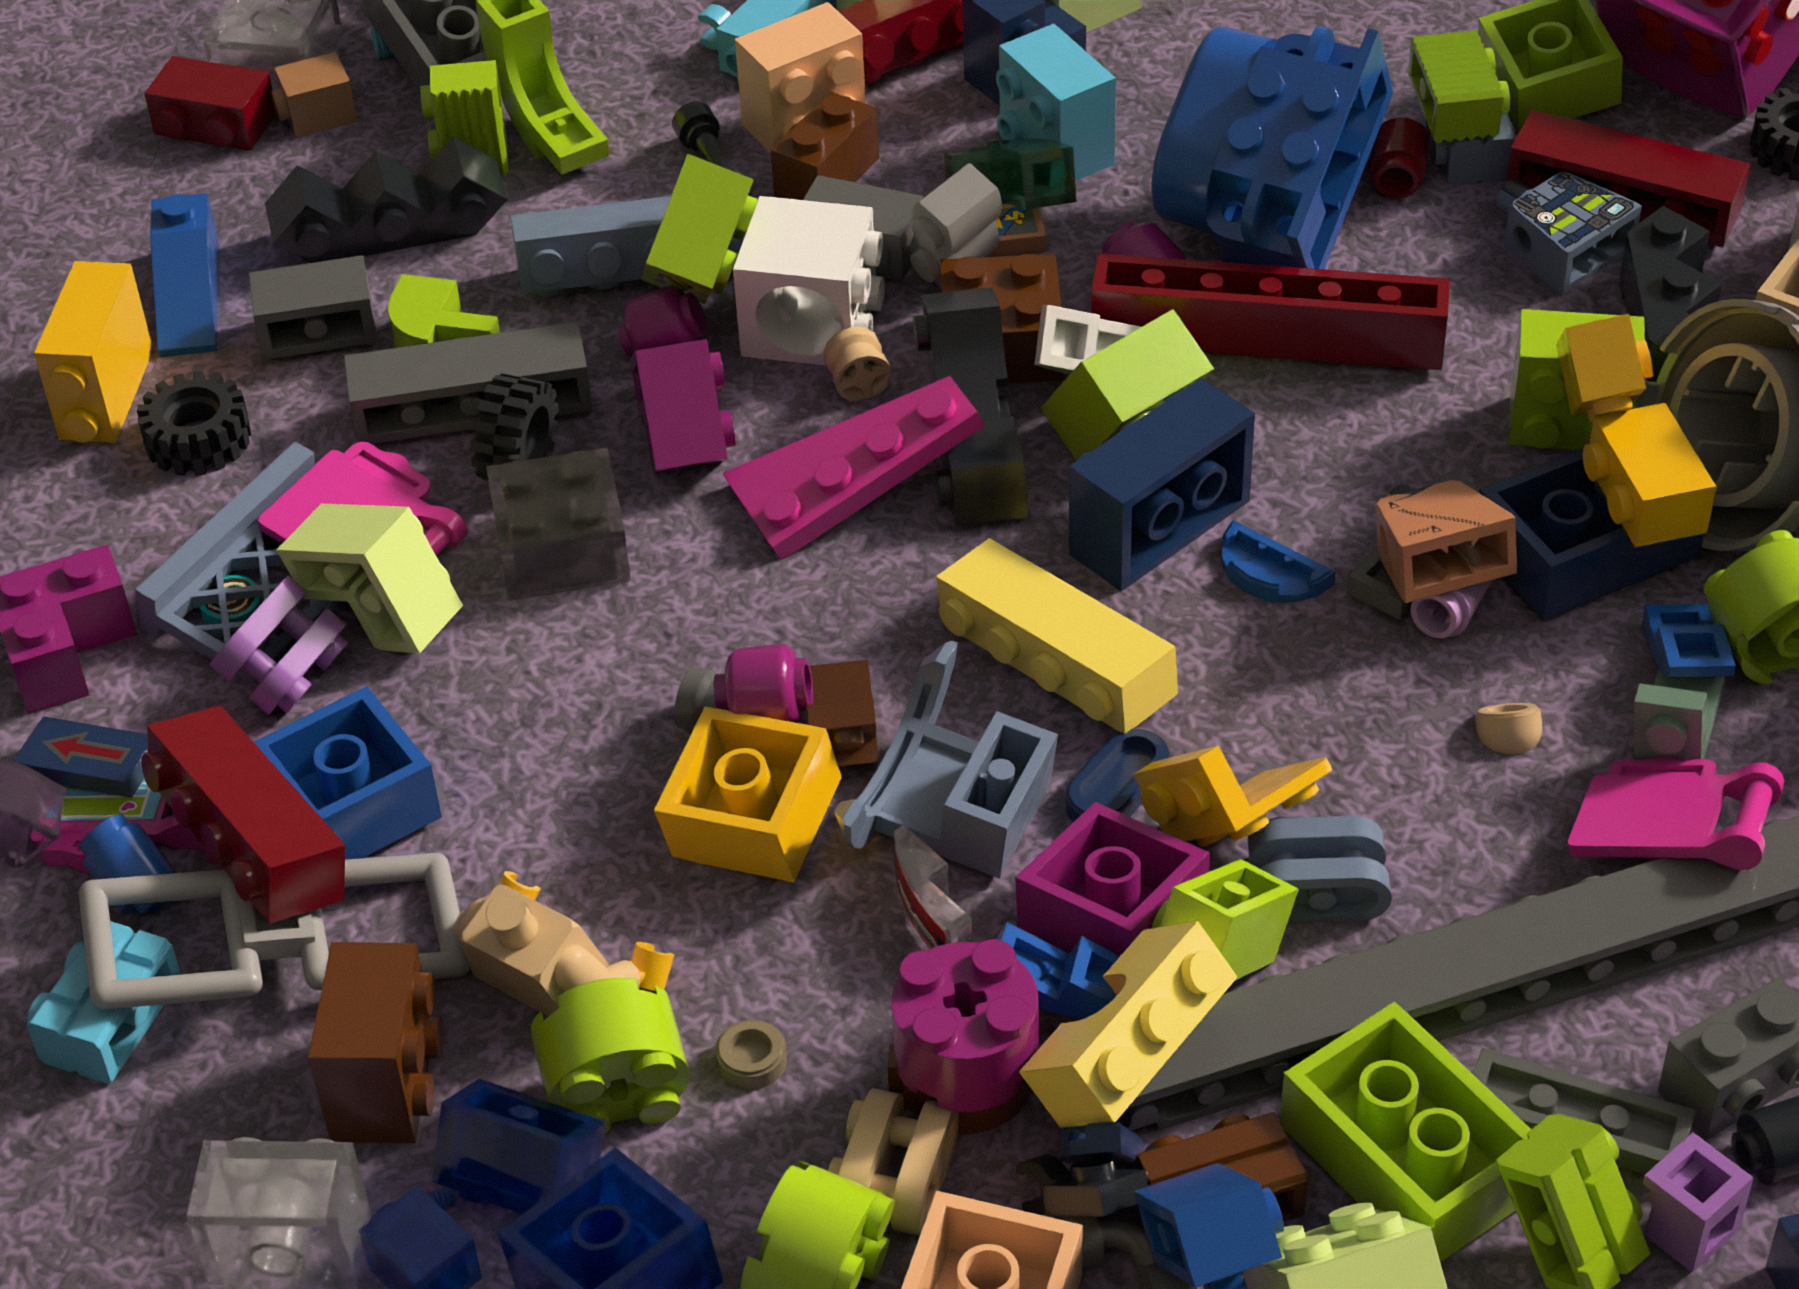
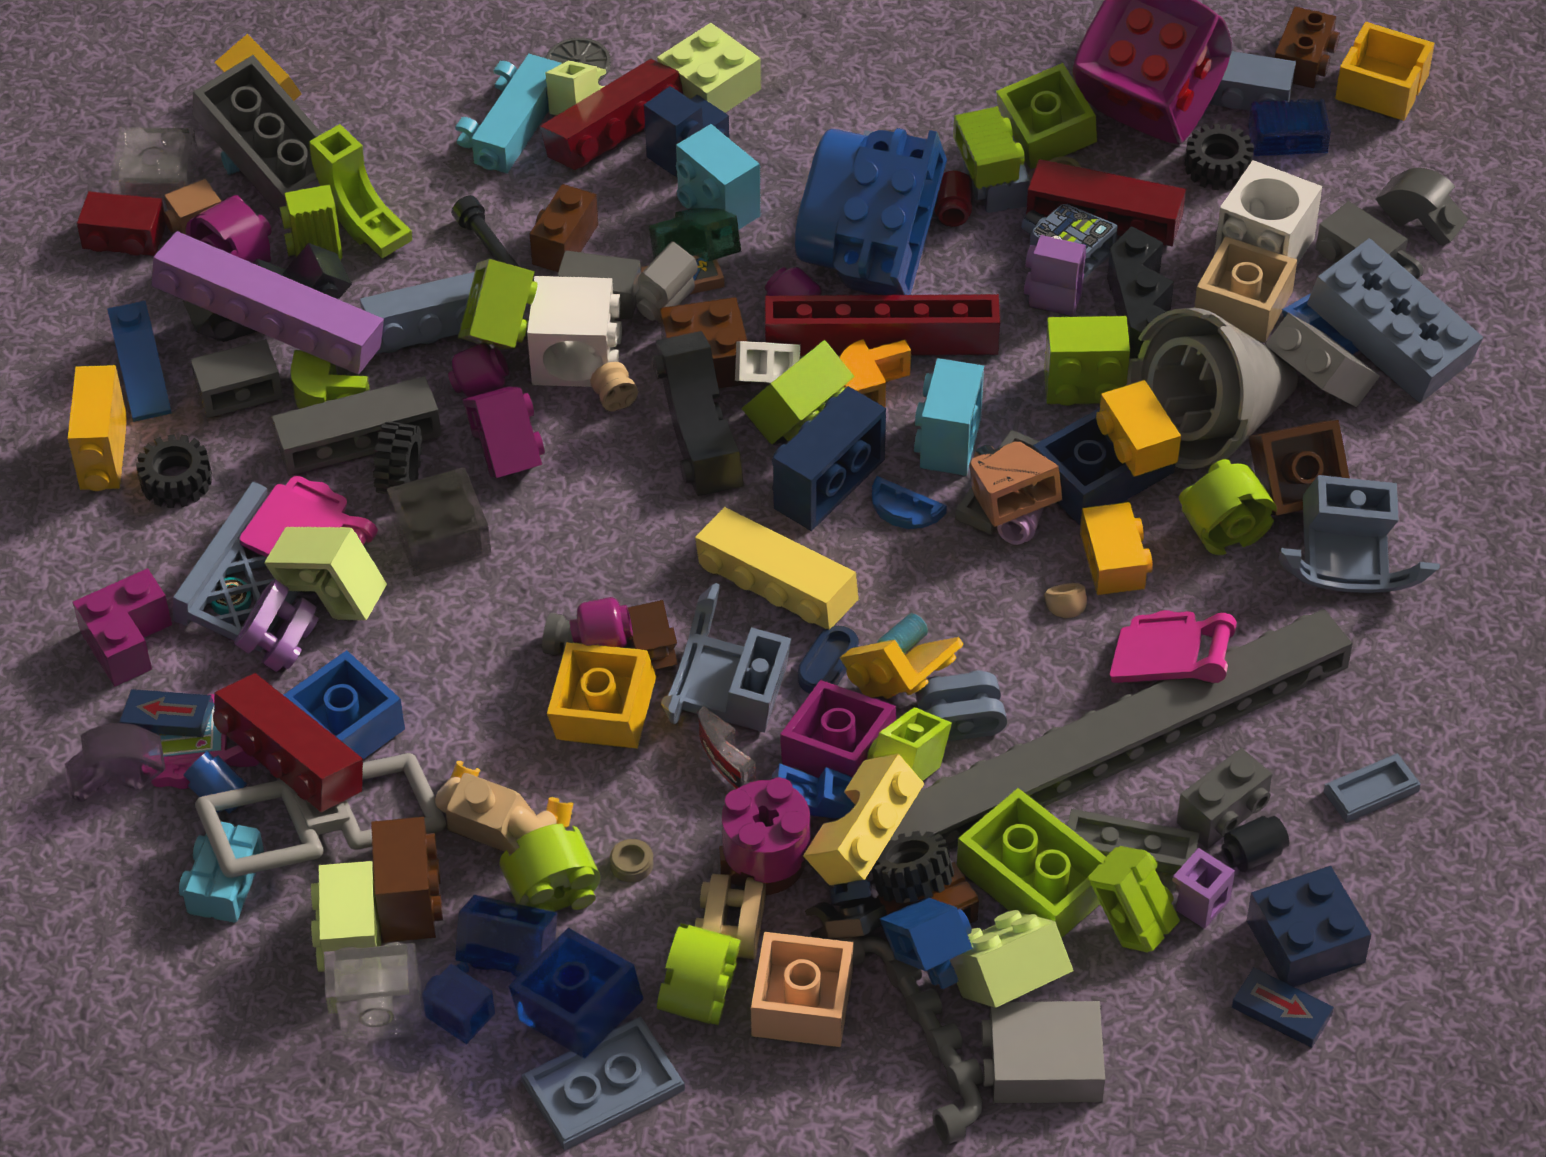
camera: 10 degrees left, 5 degrees up
(262, 1076) = (344, 909): none -> yellowish green brick
(346, 123) = (234, 229): none -> magenta brick
(373, 204) = (267, 302): none -> medium lavender brick
(793, 67) = (534, 169): light nougat brick -> none
(837, 471) = (616, 467): dark pink wing -> none
(1201, 1112) = (913, 867): none -> black tyre
(1252, 744) = (905, 626): none -> medium azure piece
(1255, 366) = (876, 367): none -> light orange brick
(1354, 440) = (949, 416): none -> medium azure brick
(1540, 259) = (1055, 275): none -> medium lavender brick
(1593, 654) = (1115, 548): none -> yellow brick
(1603, 366) = (1104, 360): yellow brick -> none
(1675, 716) = (1169, 581): bracket -> none
(1687, 641) = (1171, 533): blue slope -> none

